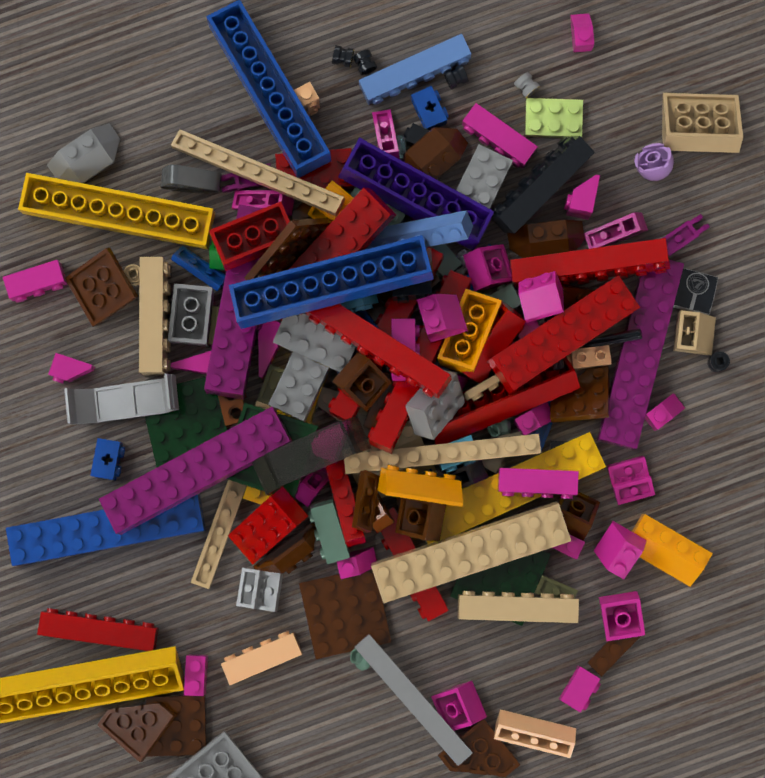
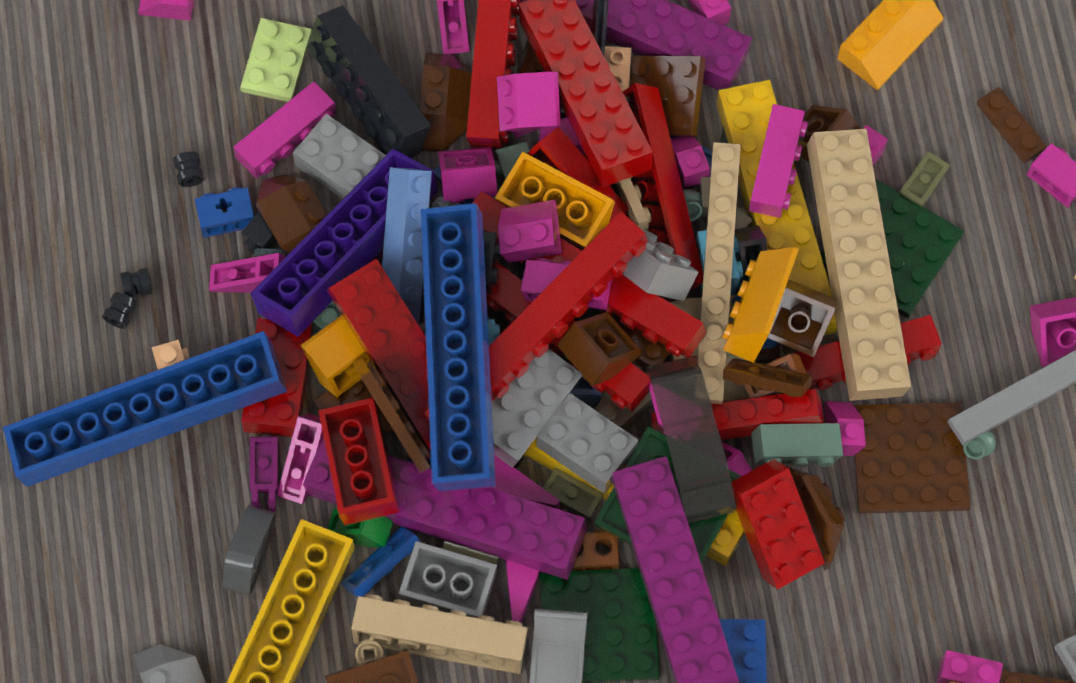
camera: 85 degrees left, 15 degrees down
(219, 530) = (767, 604): tan plate -> none
(258, 172) = (262, 448): tan plate -> none
(259, 590) = (860, 567): light grey slope -> none
(262, 658) = (958, 579): light nougat brick -> none
(415, 69) = (164, 221): medium blue brick -> none
(518, 608) = (941, 221): tan brick -> none
(527, 85) = (222, 82): light grey wheel -> none
(582, 199) = (400, 38): dark pink slope -> none
(619, 549) = (883, 86): dark pink slope -> none
(622, 616) = (970, 102): dark pink slope -> none
(630, 480) = (790, 61): dark pink slope -> none

